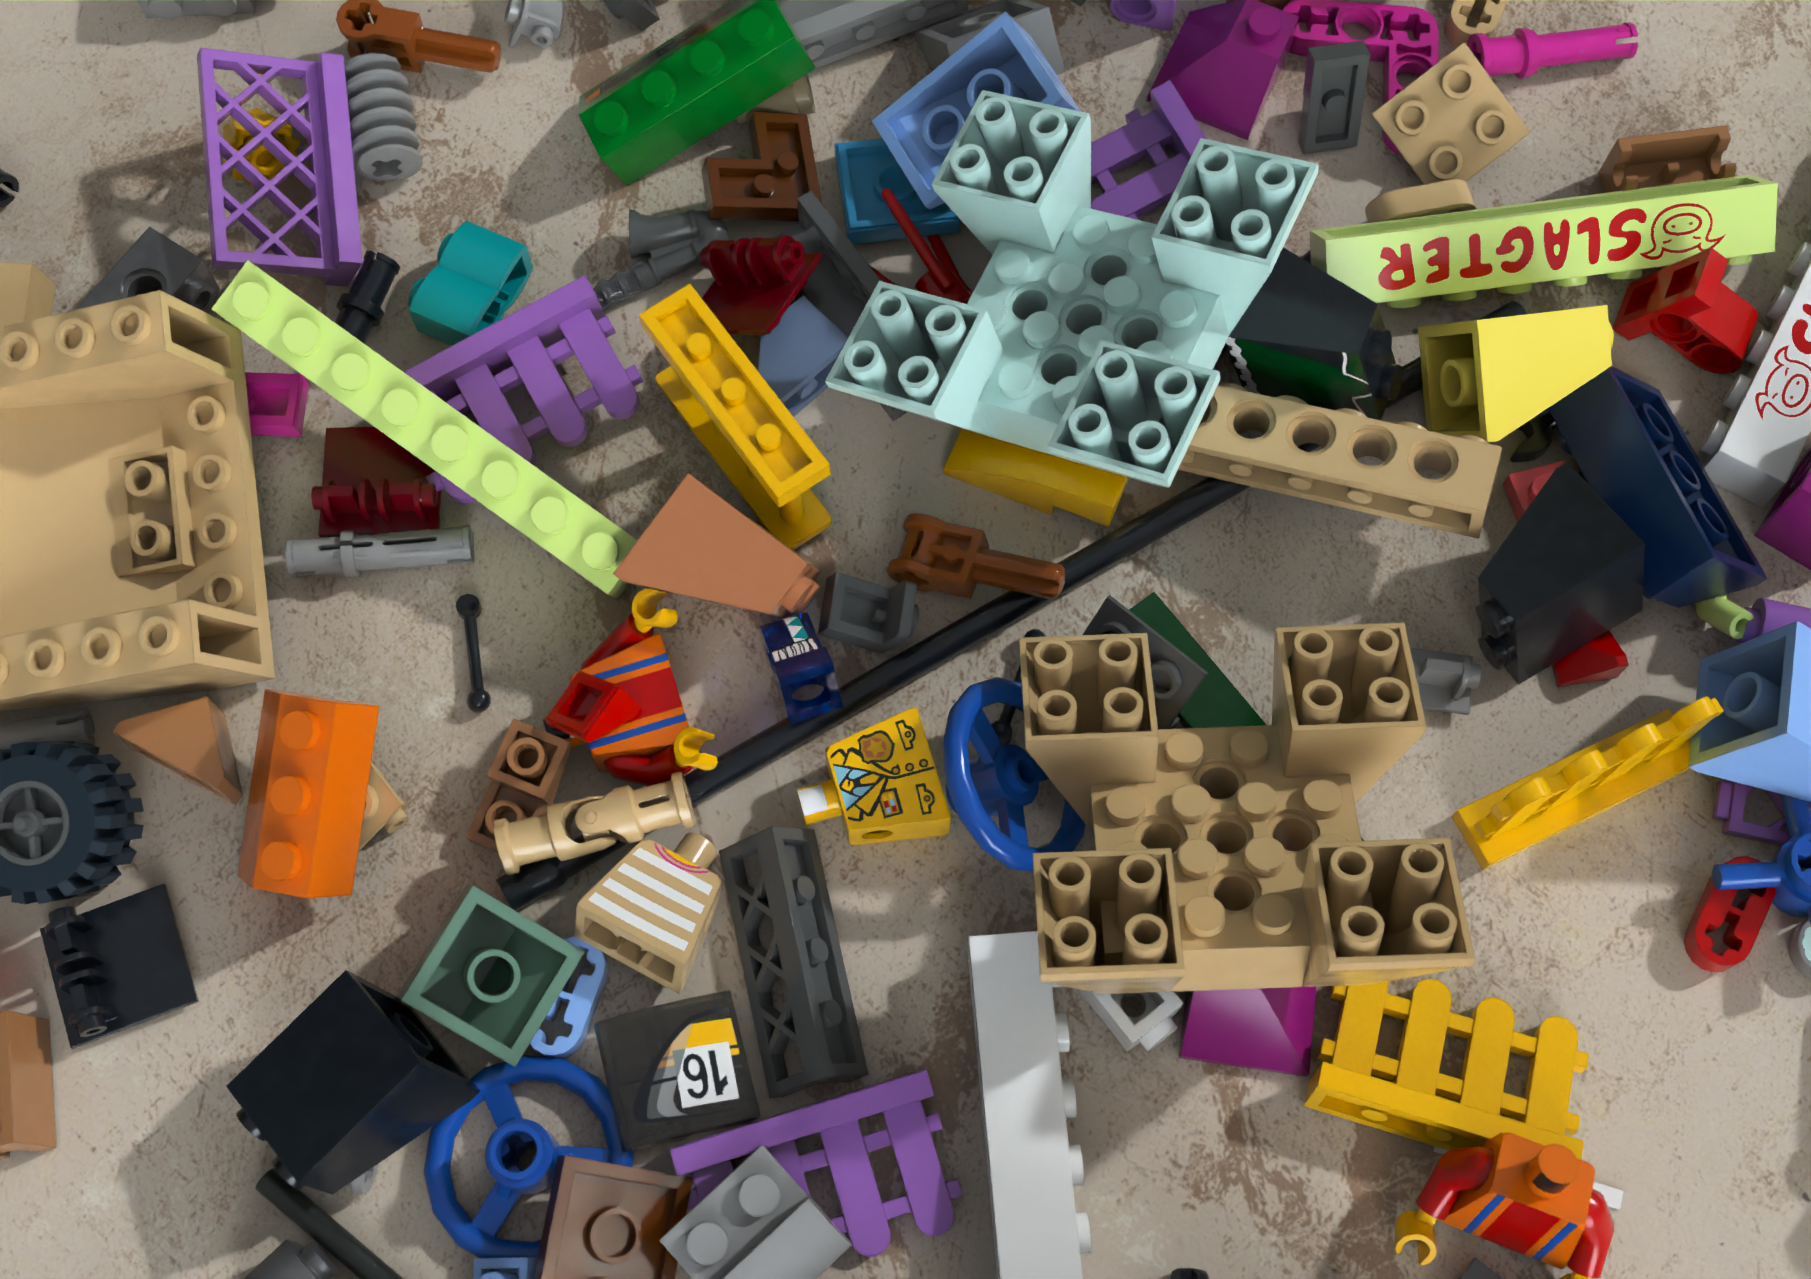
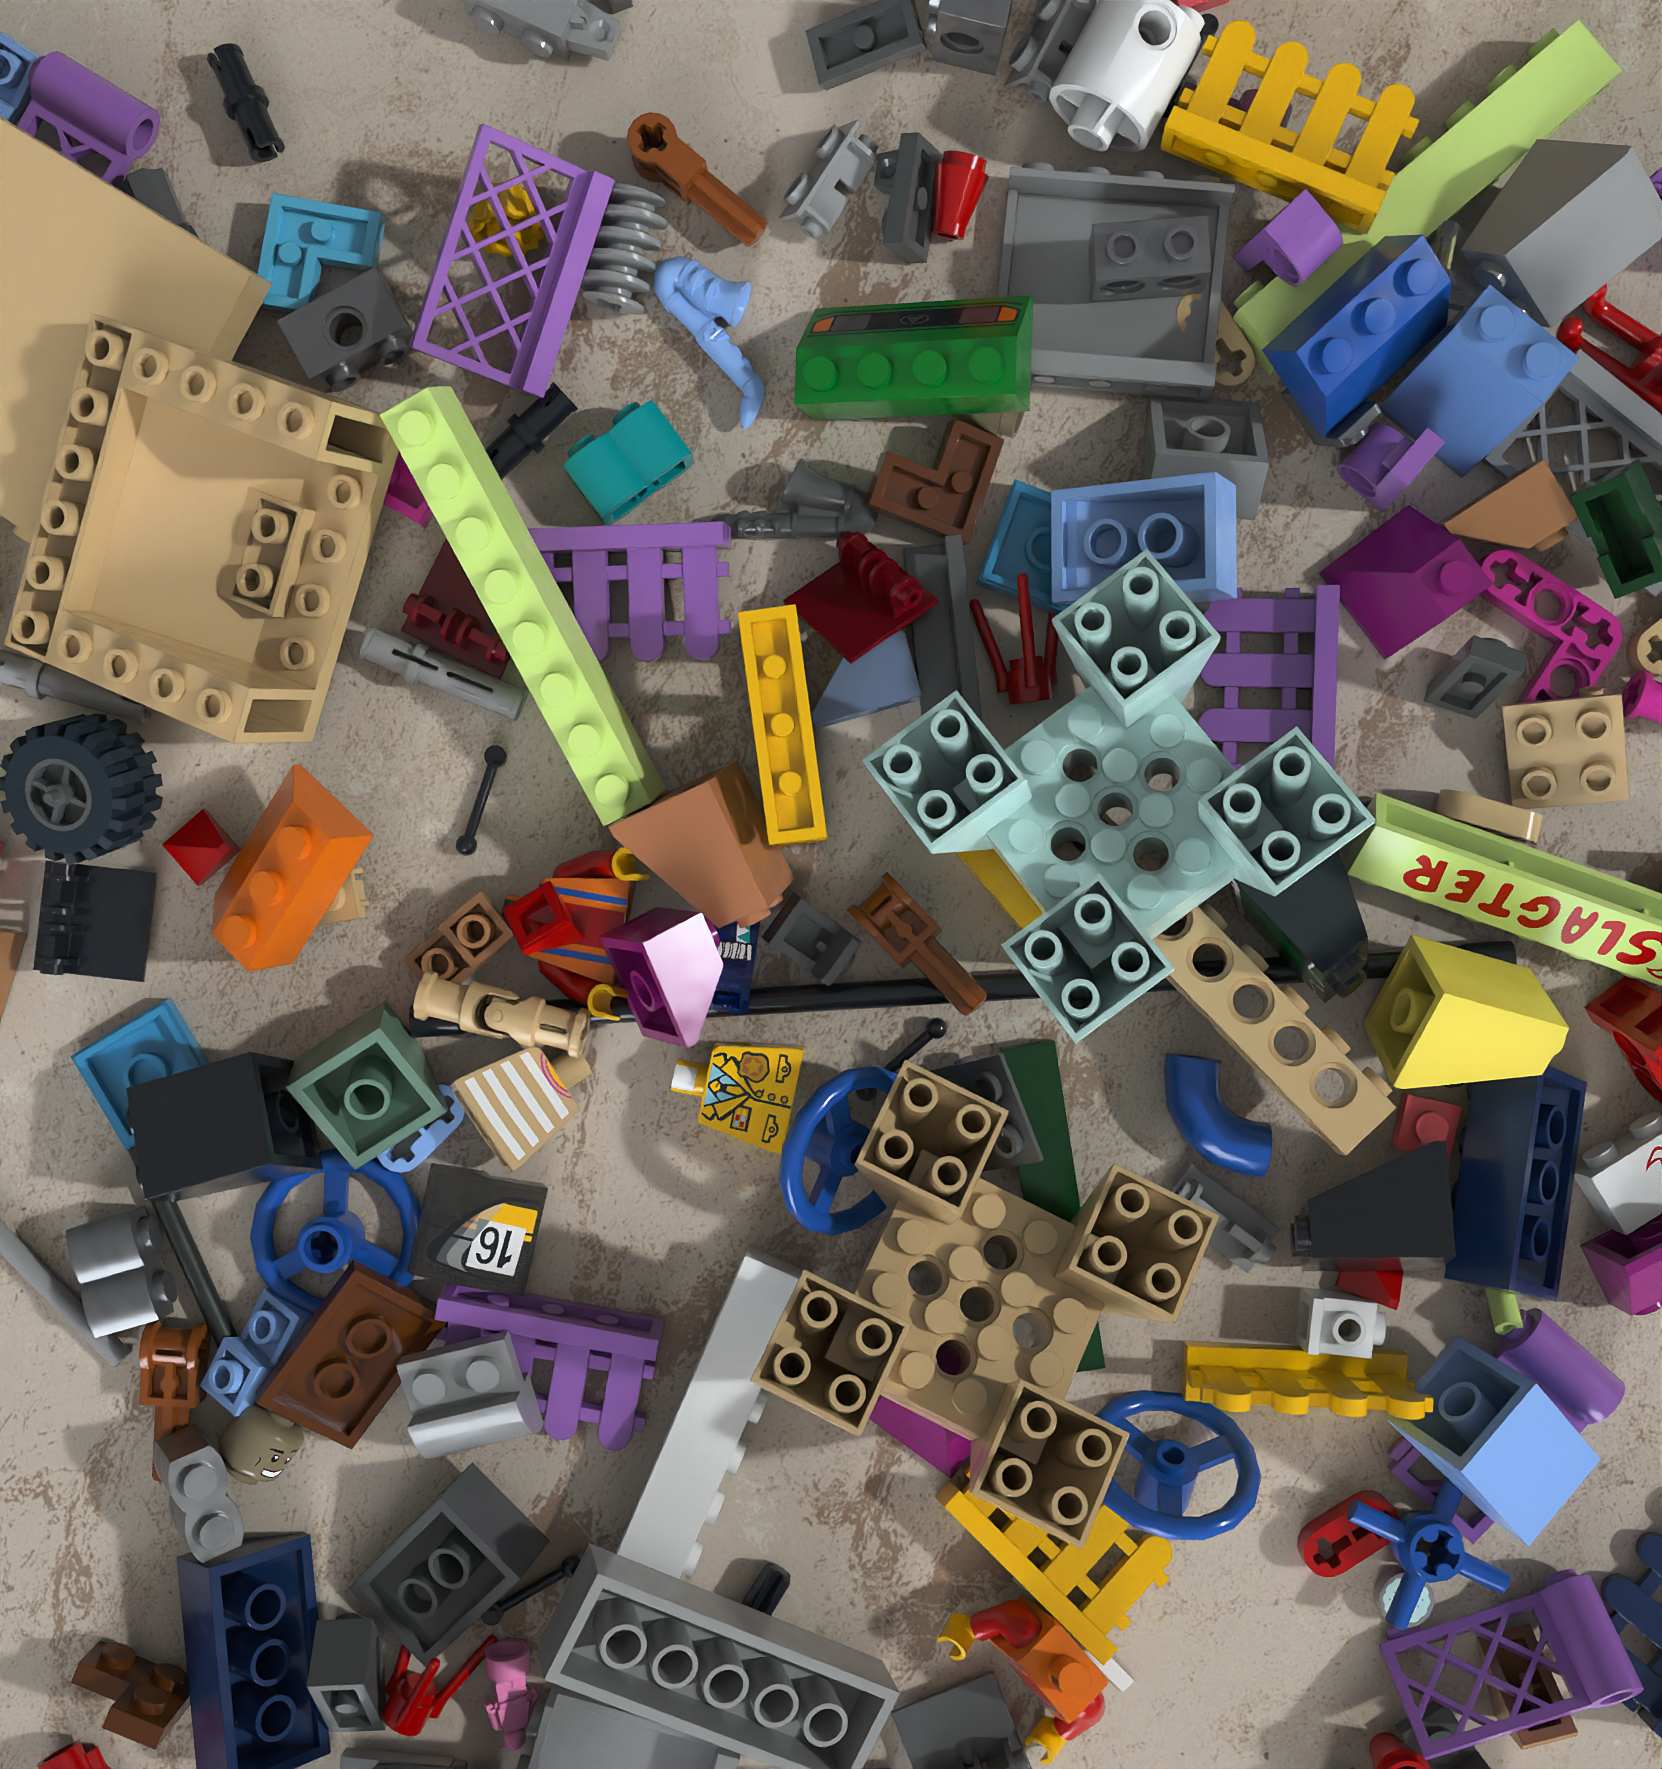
camera: 30 degrees right, 20 degrees up
(76, 238) = (312, 233): none -> medium azure plate
(188, 741) = (219, 772): medium nougat slope -> none
(203, 1108) = (136, 1053): none -> dark azure tile
(204, 837) = (201, 847): none -> red slope
(468, 135) = (697, 300): none -> light blue piece
(740, 686) = (669, 969): none -> slope
(802, 953) = (615, 1194): dark grey fence -> none
(1344, 589) = (1208, 1123): none -> blue cylinder
(1517, 928) = (1171, 1469): none -> blue piece
(1568, 720) = (1323, 1312): none -> white brick

